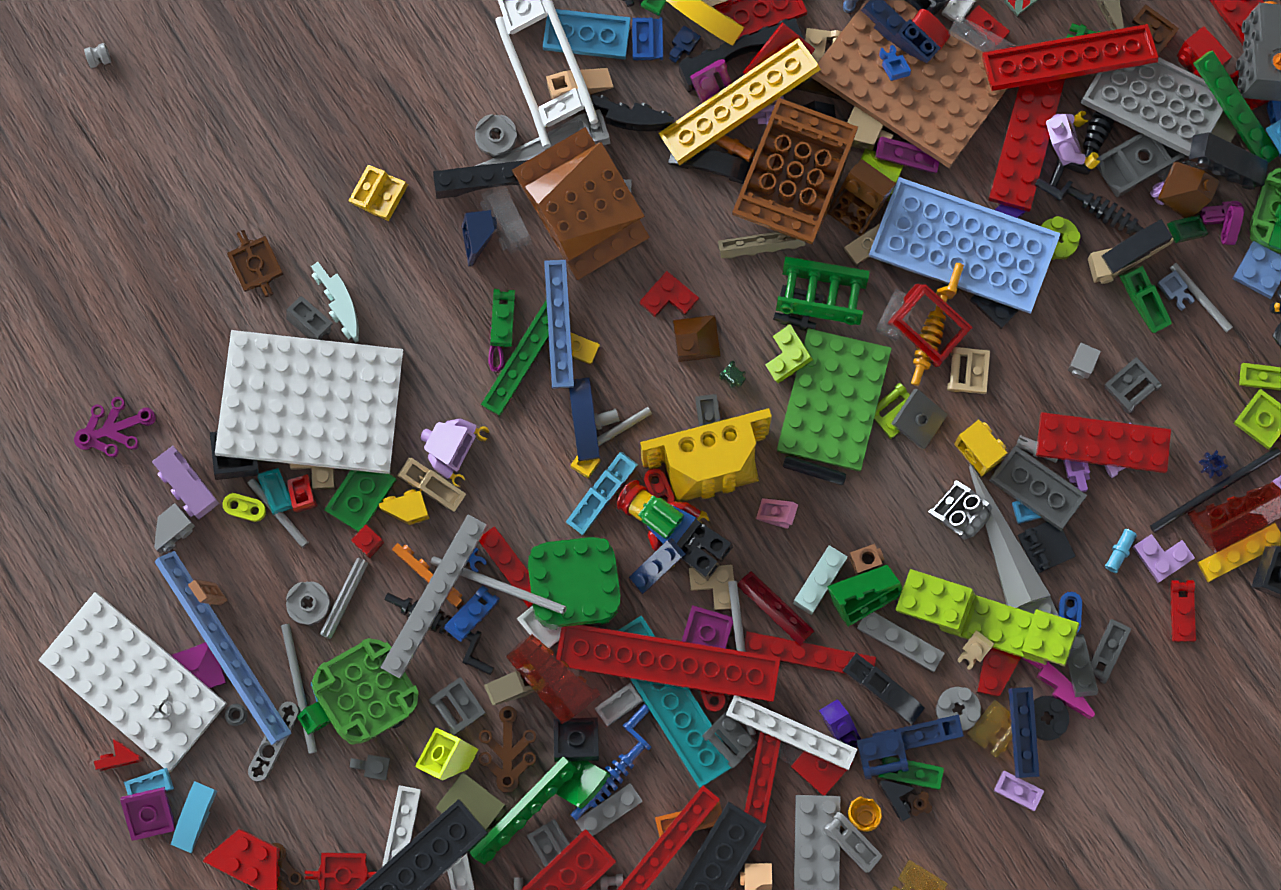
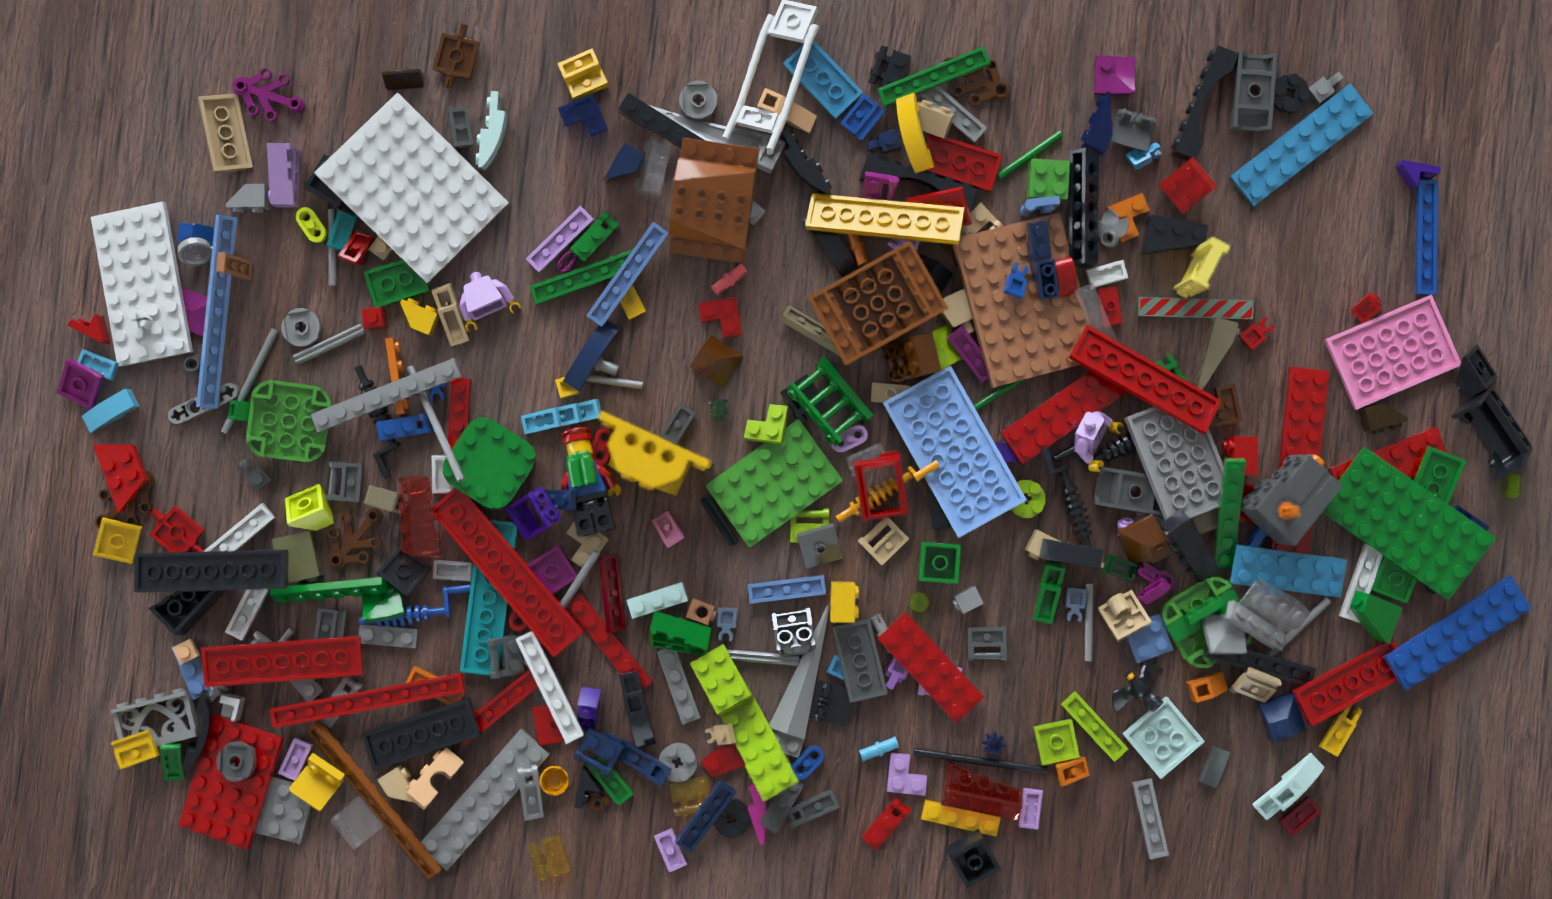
camera: 35 degrees right, 10 degrees up
(103, 489) = (225, 133): none -> tan slope
(148, 598) = (195, 230): none -> blue slope
(160, 611) = (195, 251): none -> piece
(224, 319) = (403, 79): none -> dark brown slope
(407, 218) = (587, 110): none -> clear blue plate
(474, 344) = (560, 239): none -> lavender plate
(648, 260) = (729, 279): none -> coral pin
(654, 610) = (530, 526): none -> dark purple window
(869, 311) = (850, 440): none -> lavender plate
(894, 548) = (726, 619): none -> sand blue plate
(922, 480) = (786, 589): none -> medium blue plate
(956, 553) = (763, 657): none -> light grey axle
(958, 170) = (996, 394): none -> green bar
(1032, 348) = (939, 562): none -> green brick
(1044, 398) = (919, 602): none -> clear neon green plate
(1225, 265) = (1124, 615): none -> tan plate

